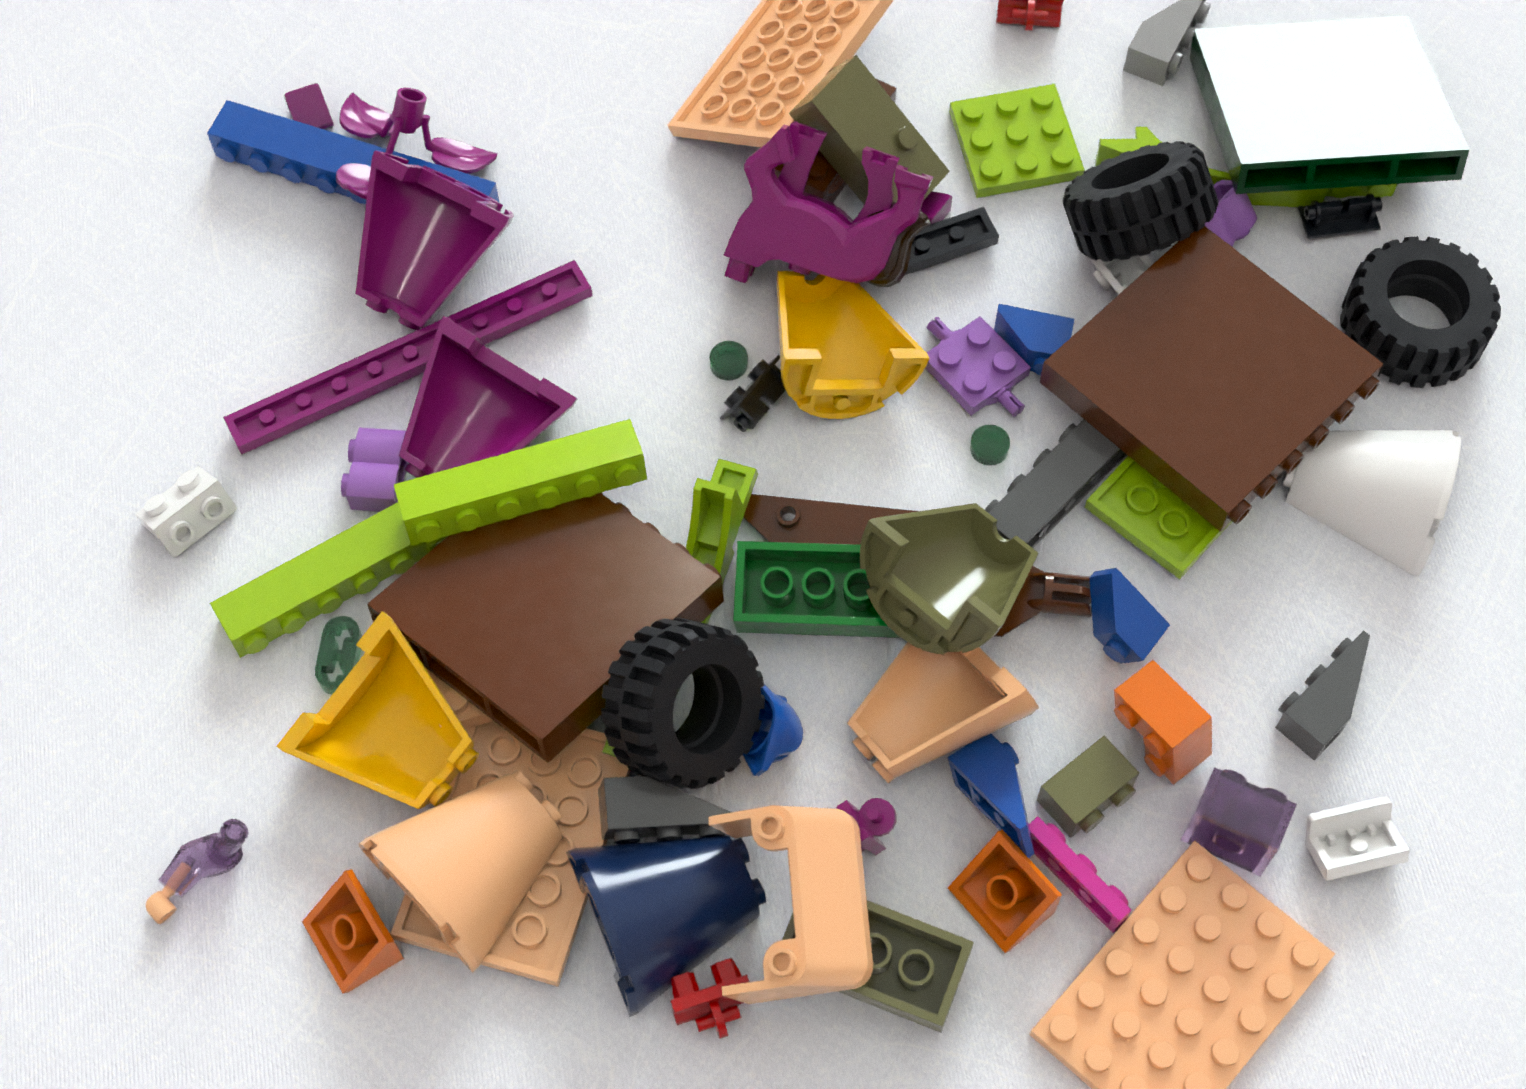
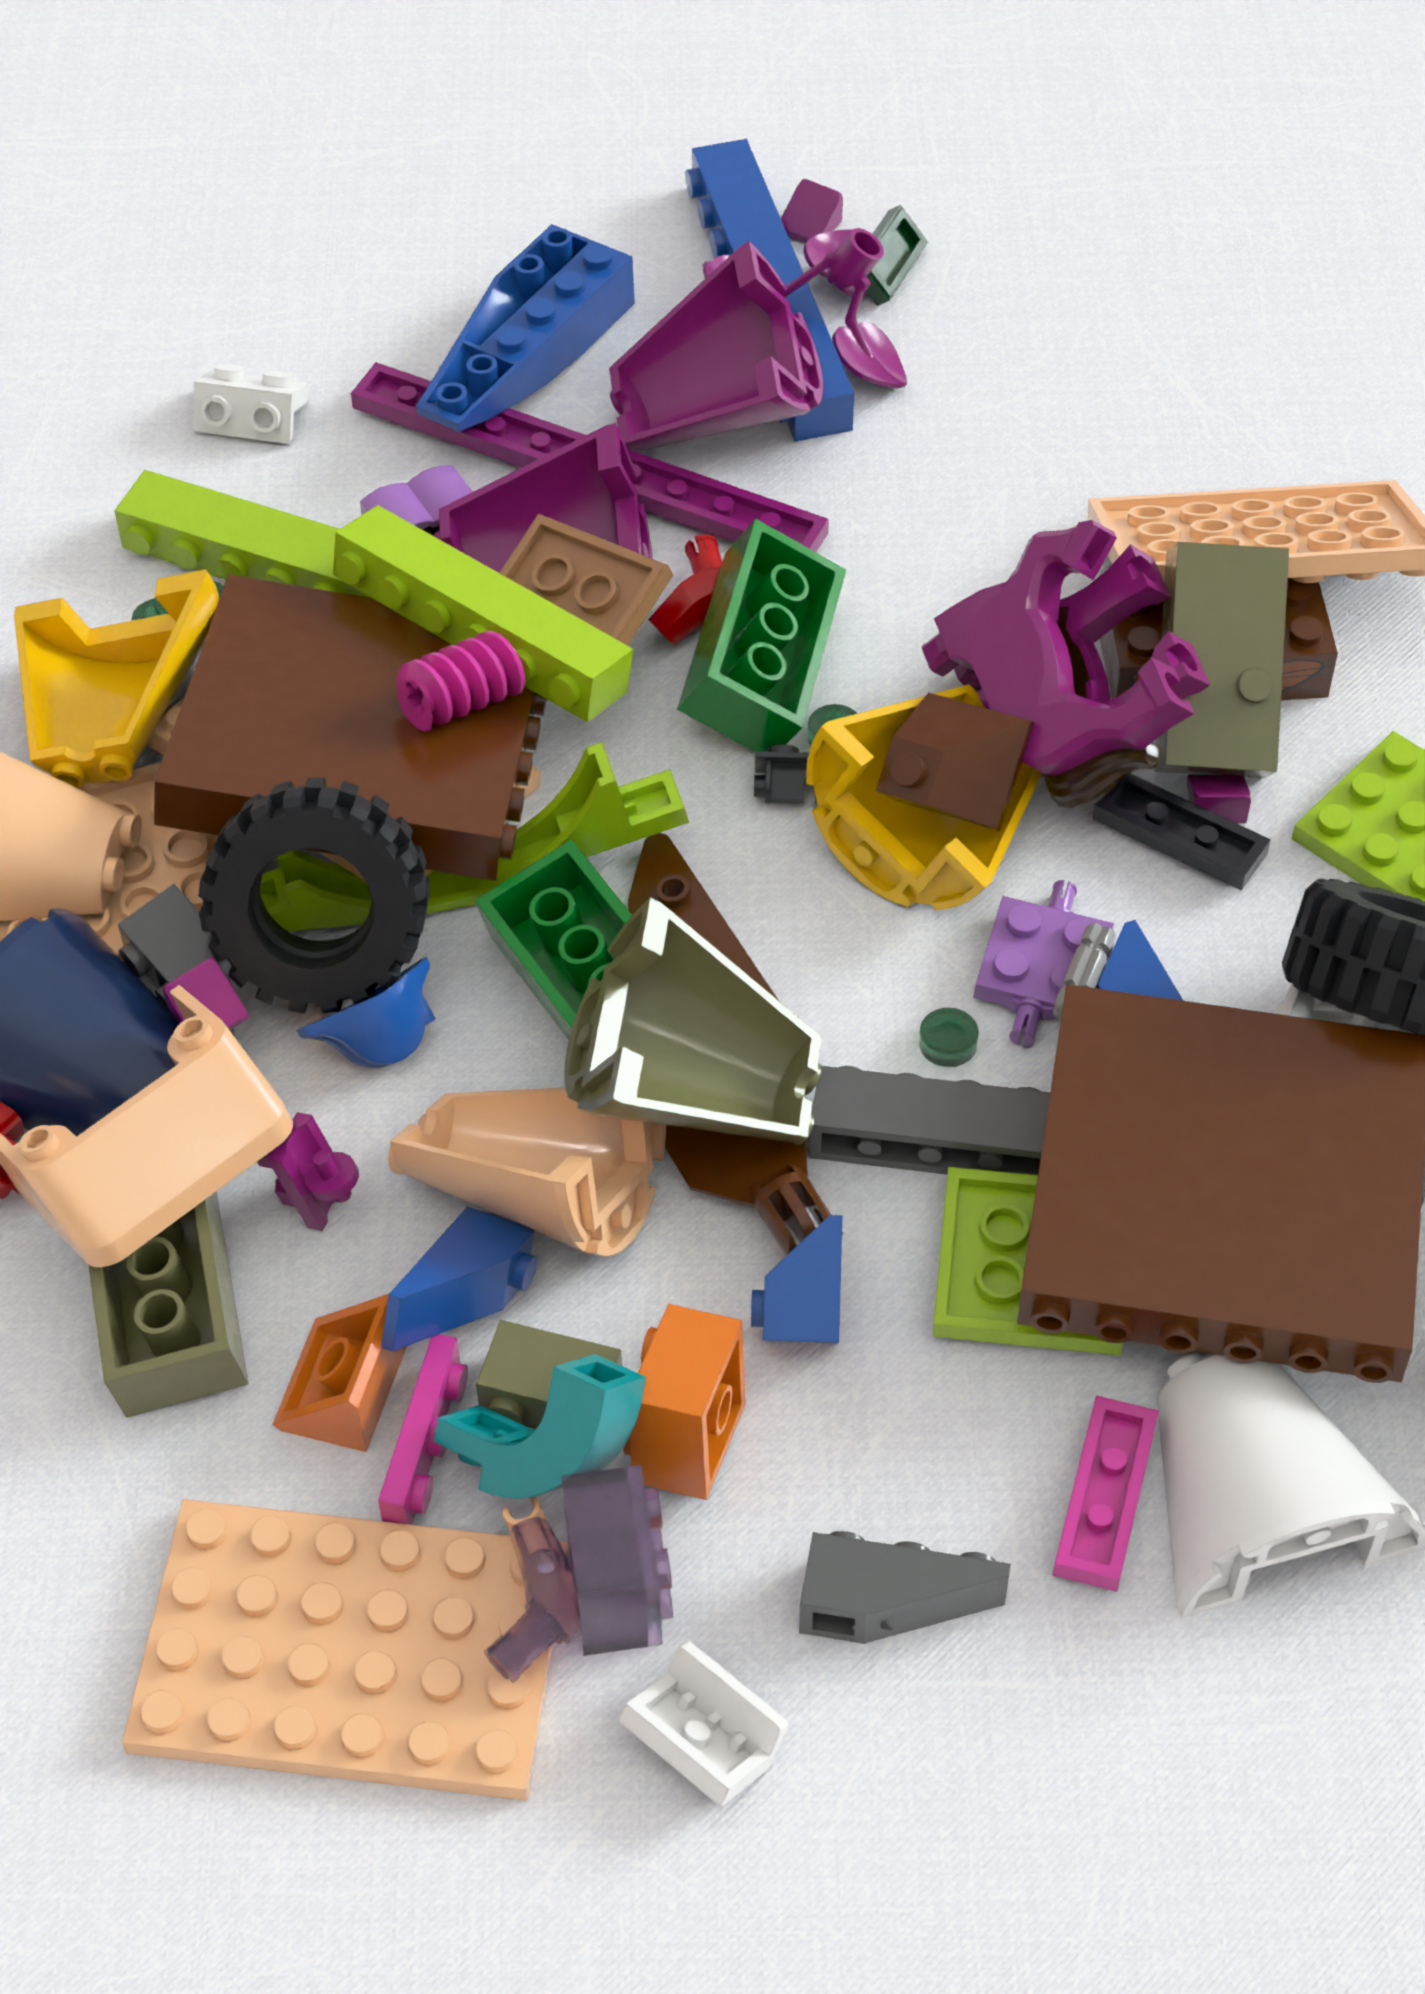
camera: 55 degrees right, 10 degrees down
(276, 316) = (530, 327): none -> blue wedge
(379, 85) = (901, 246): none -> tile
(542, 410) = (588, 576): none -> medium nougat tile
(577, 359) = (689, 602): none -> red arm
(582, 525) = (459, 680): none -> dark pink piece
(650, 350) = (762, 639): none -> green brick
(700, 805) = (212, 989): none -> magenta slope
(836, 311) = (956, 760): none -> reddish brown slope
(1015, 351) = (1087, 961): none -> light grey axle
(1161, 812) = (582, 1430): none -> teal arch
(1234, 864) = (549, 1594): none -> arm
(1334, 560) = (1105, 1493): none -> dark pink plate

